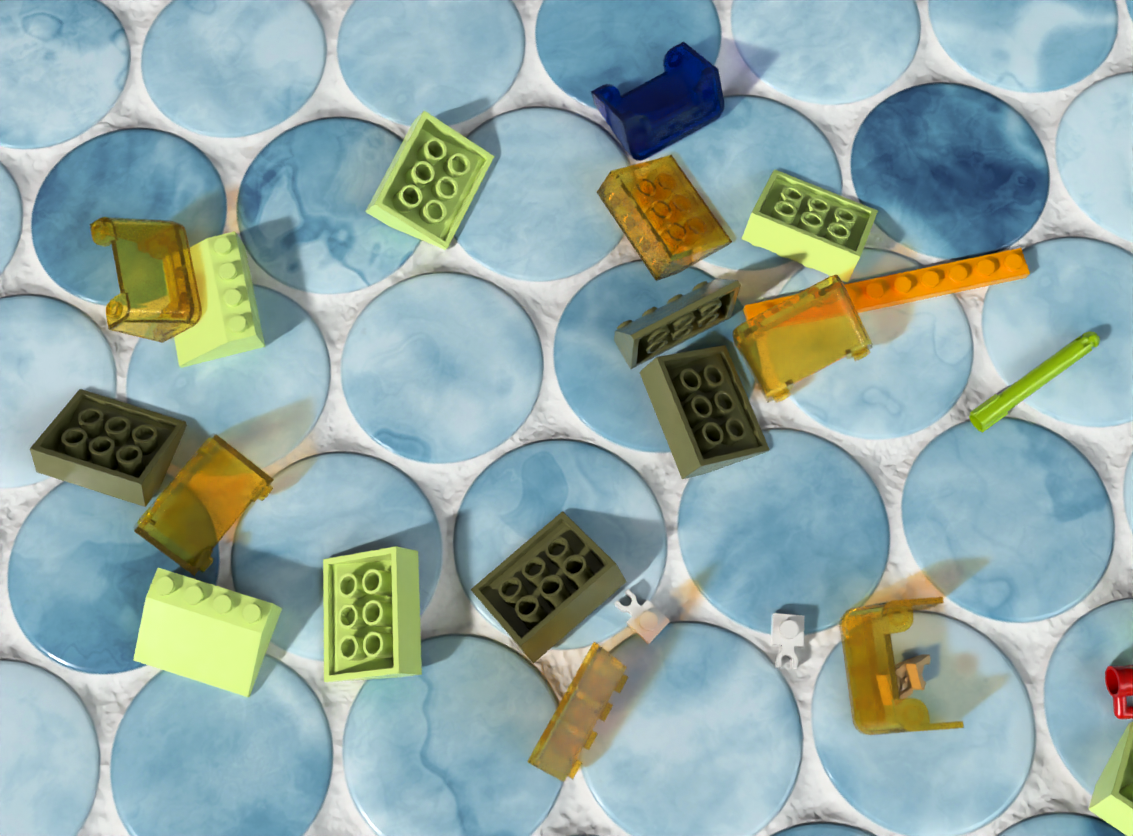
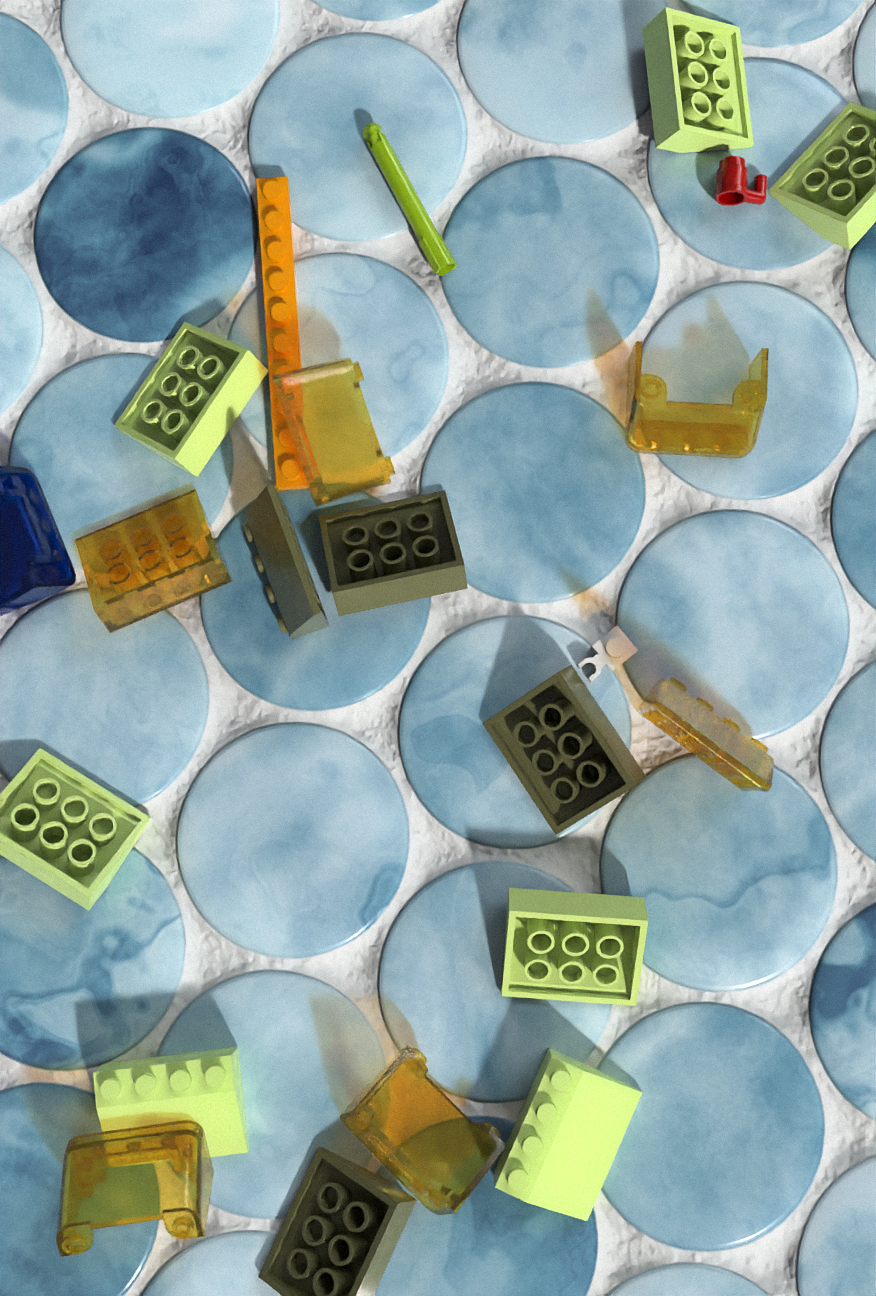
camera: 85 degrees left, 10 degrees up
(787, 632) = (643, 507): white plate -> none
(910, 674) = (699, 390): tan slope -> none

